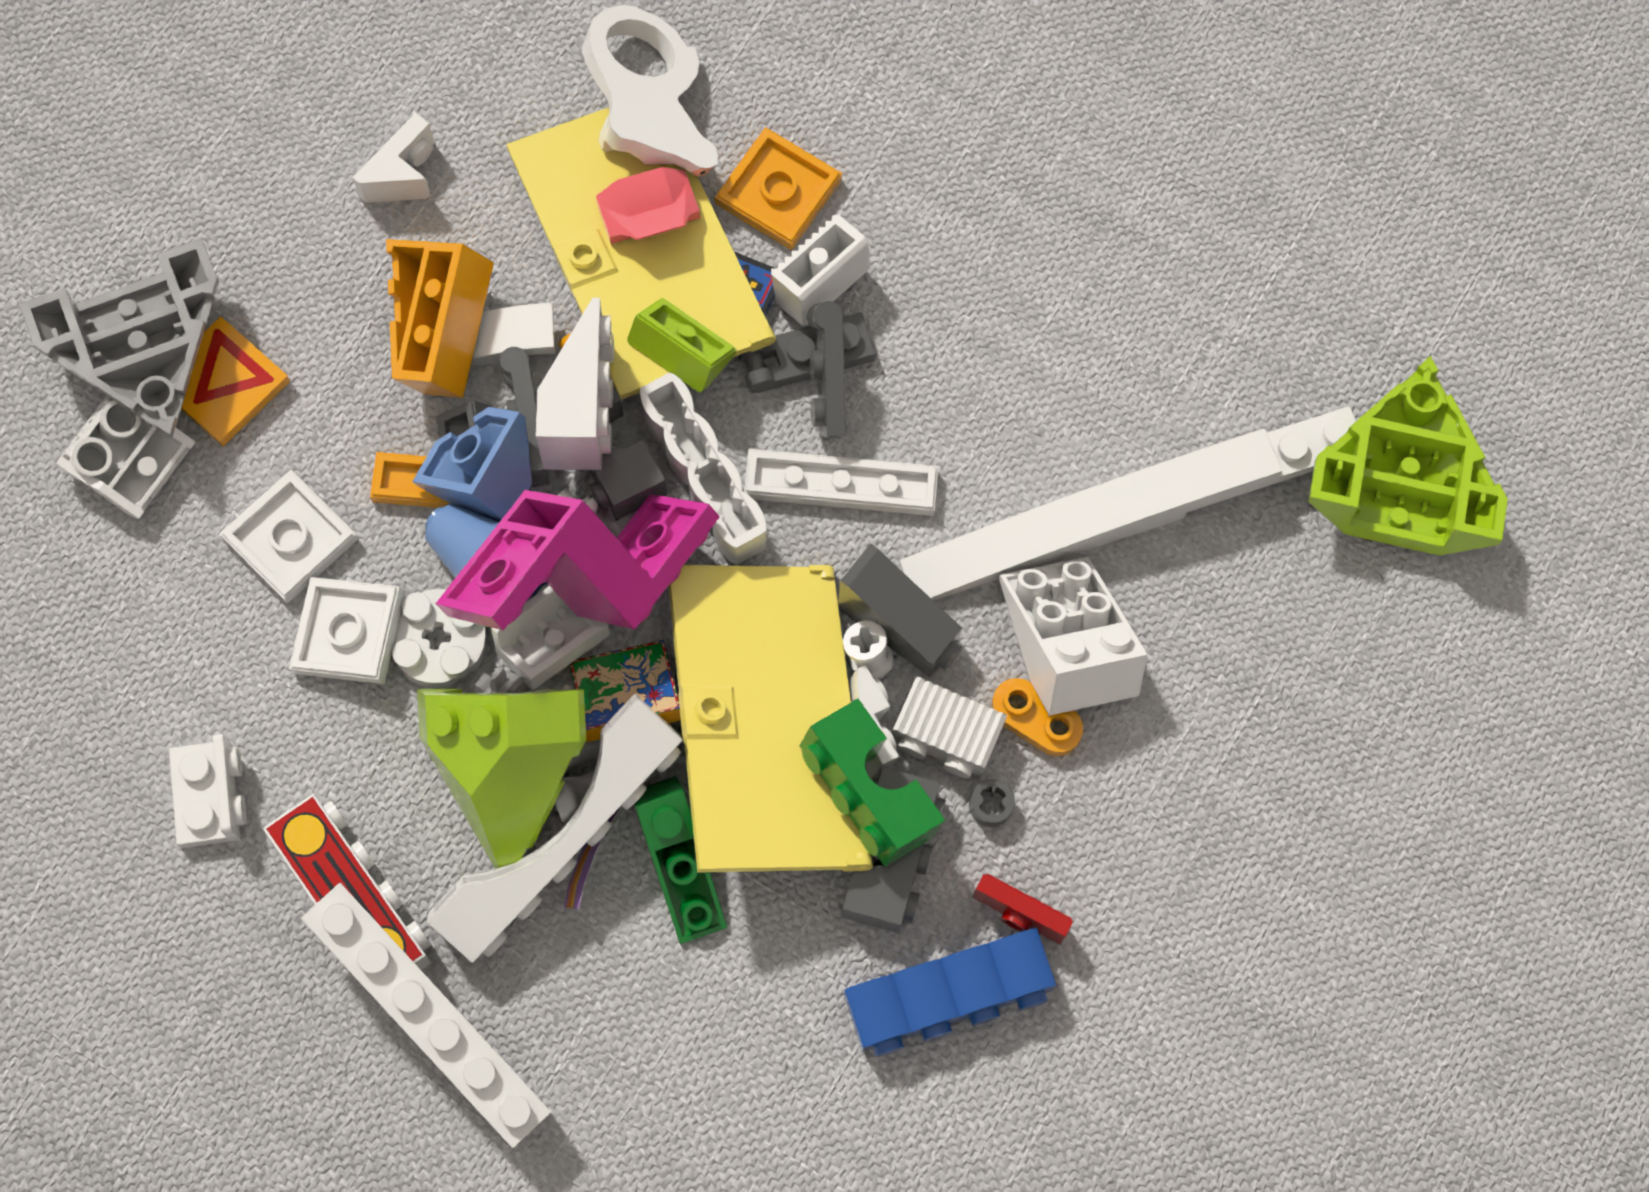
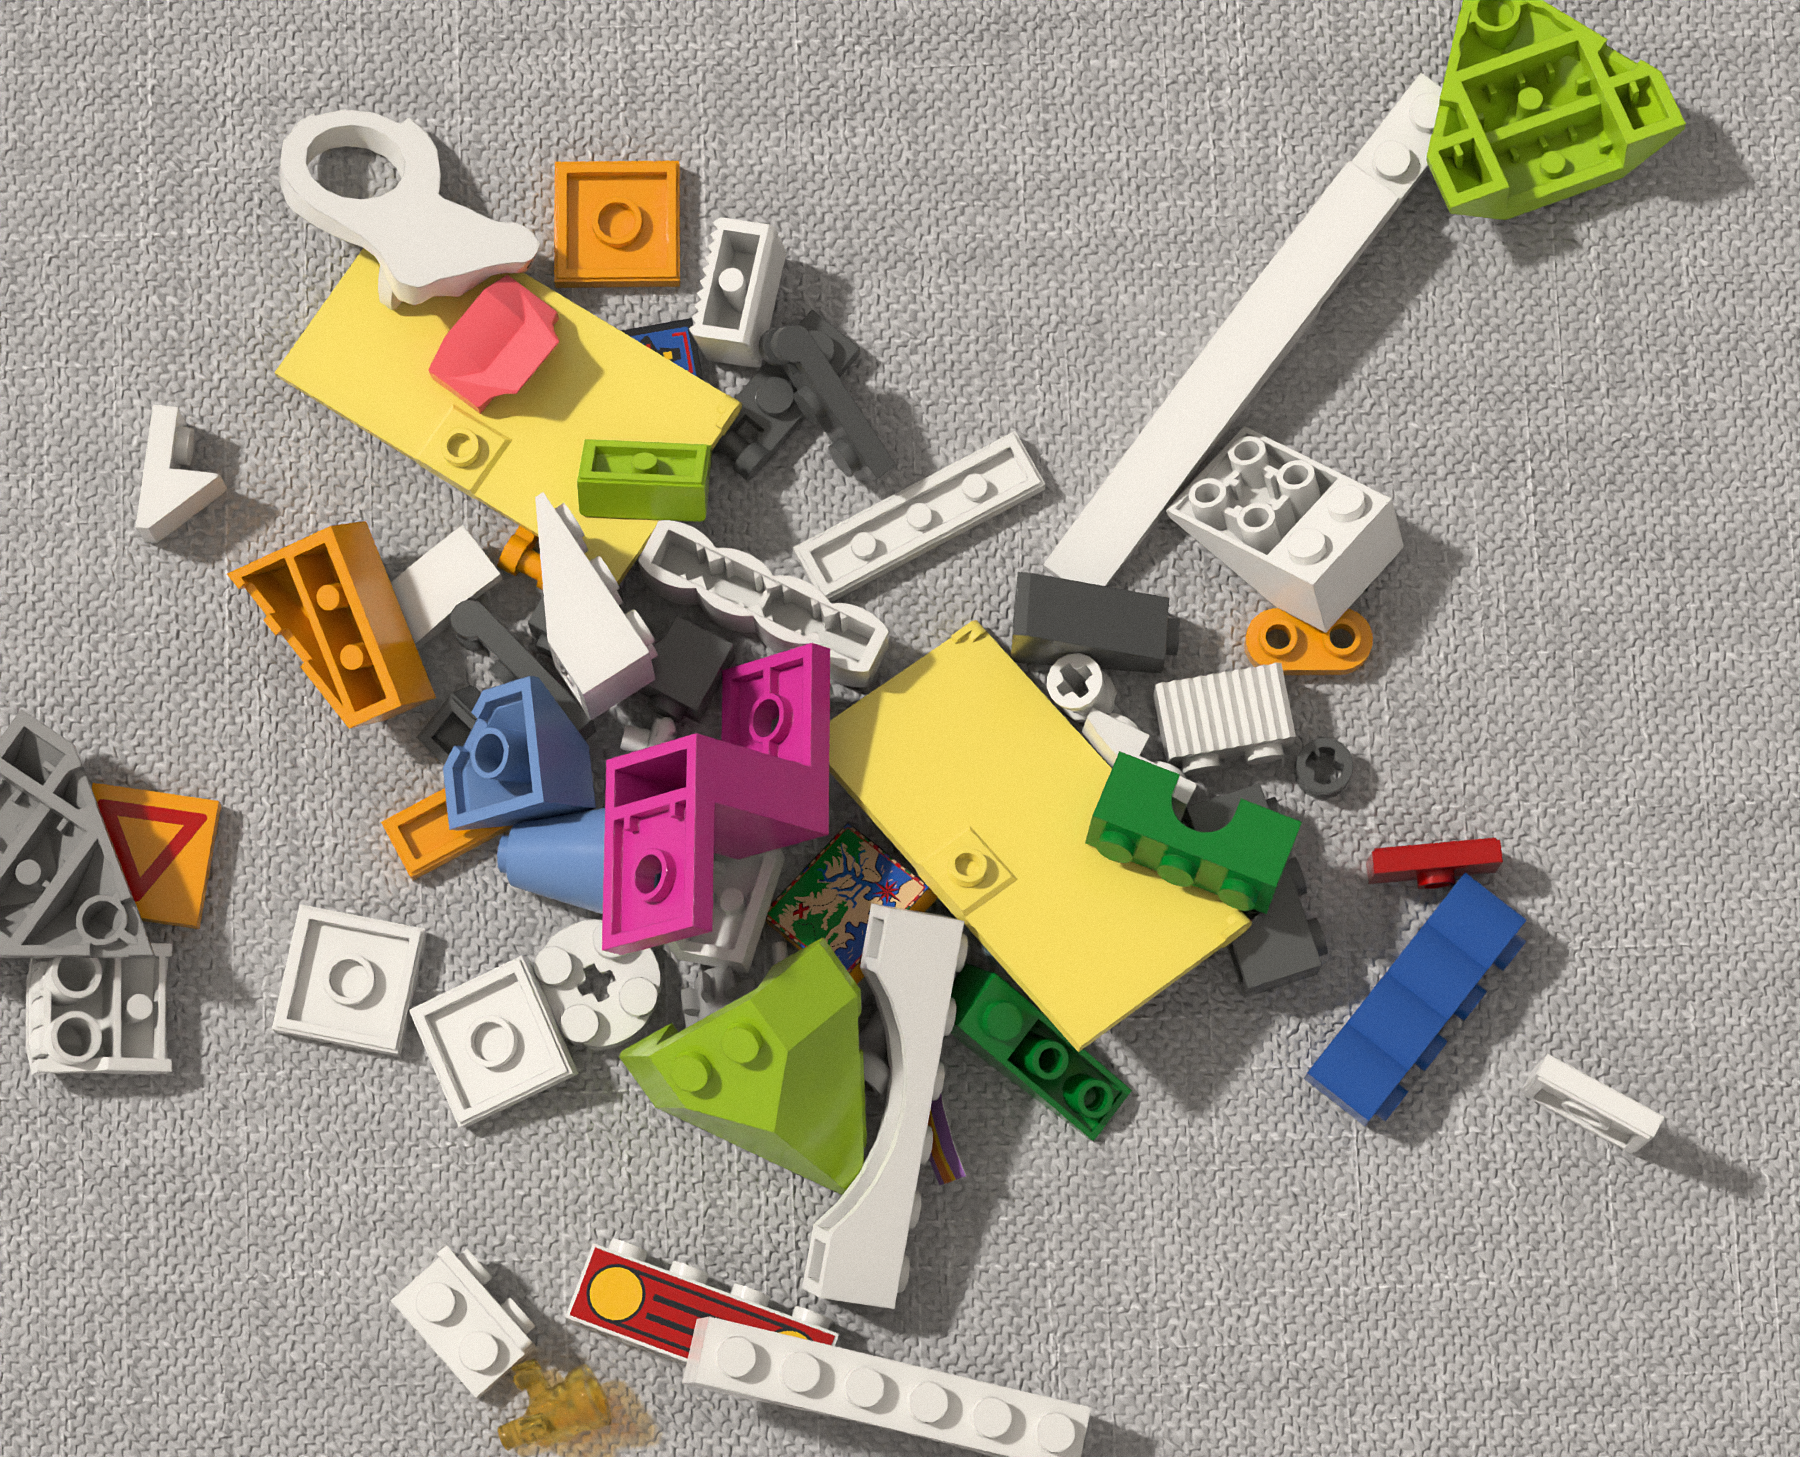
camera: 30 degrees left, 5 degrees up
(221, 886) = (556, 1411): none -> clear yellow piece
(1017, 1134) = (1591, 1104): none -> white tile

